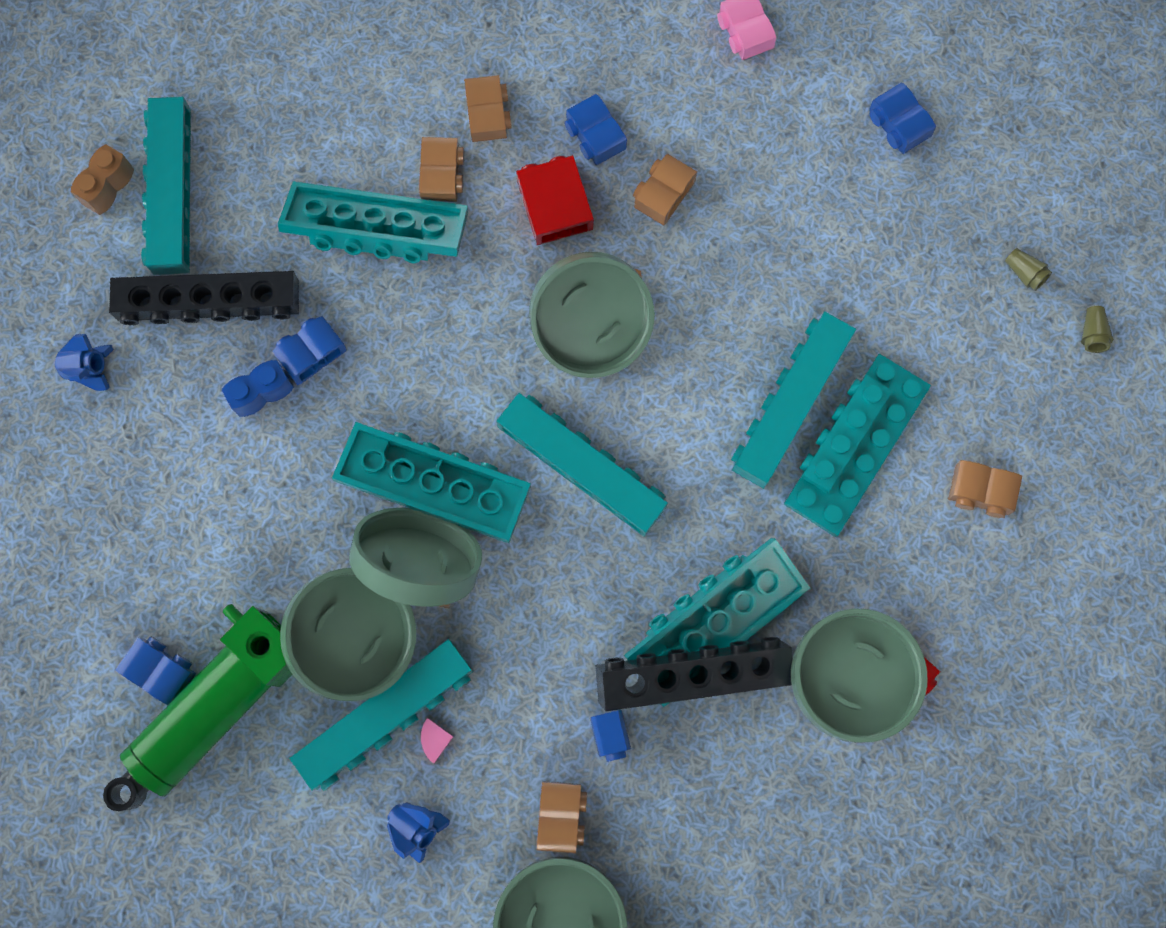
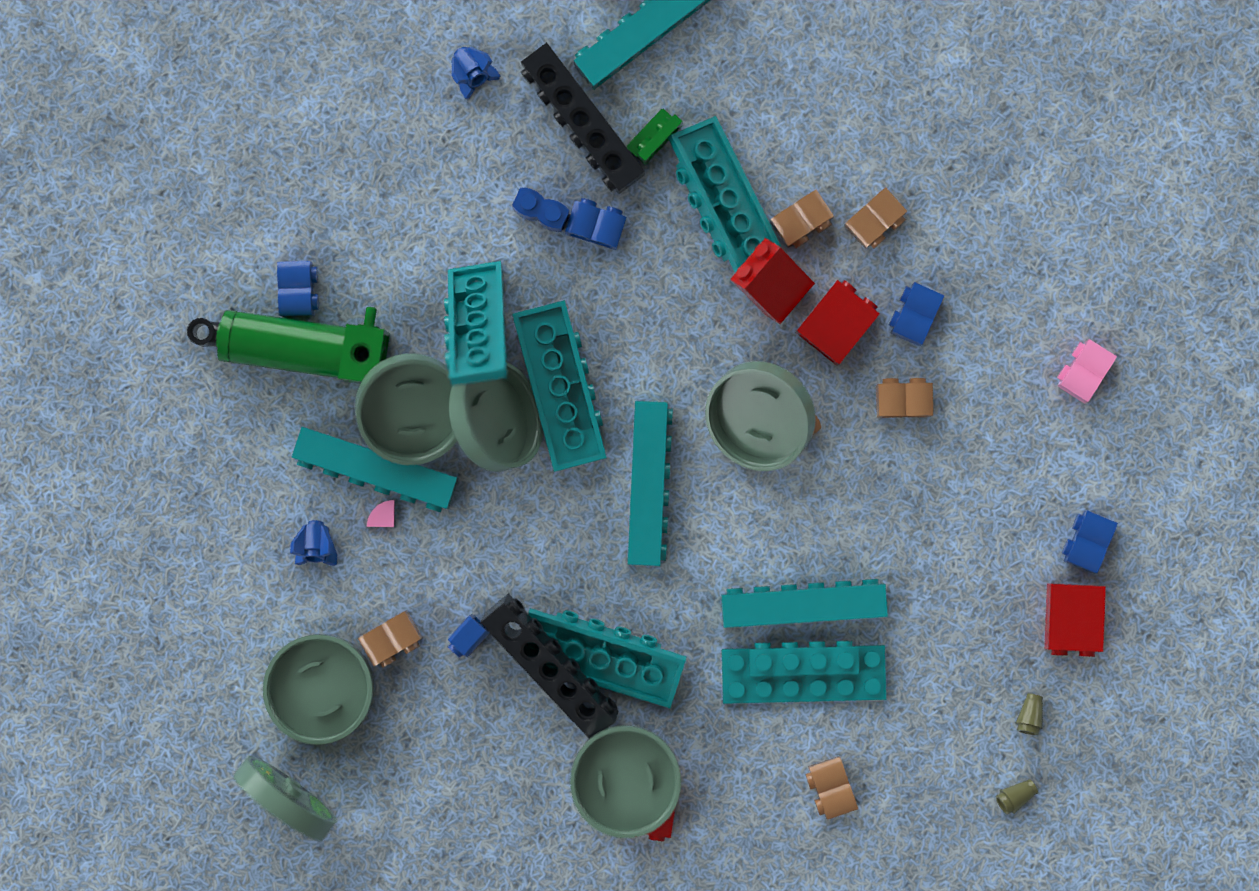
camera: 60 degrees right, 10 degrees up
(269, 242) = (654, 136): none -> green bracket
(315, 514) = (475, 324): none -> teal plate
(475, 224) = (772, 281): none -> red brick
(964, 174) = (1075, 619): none -> red brick

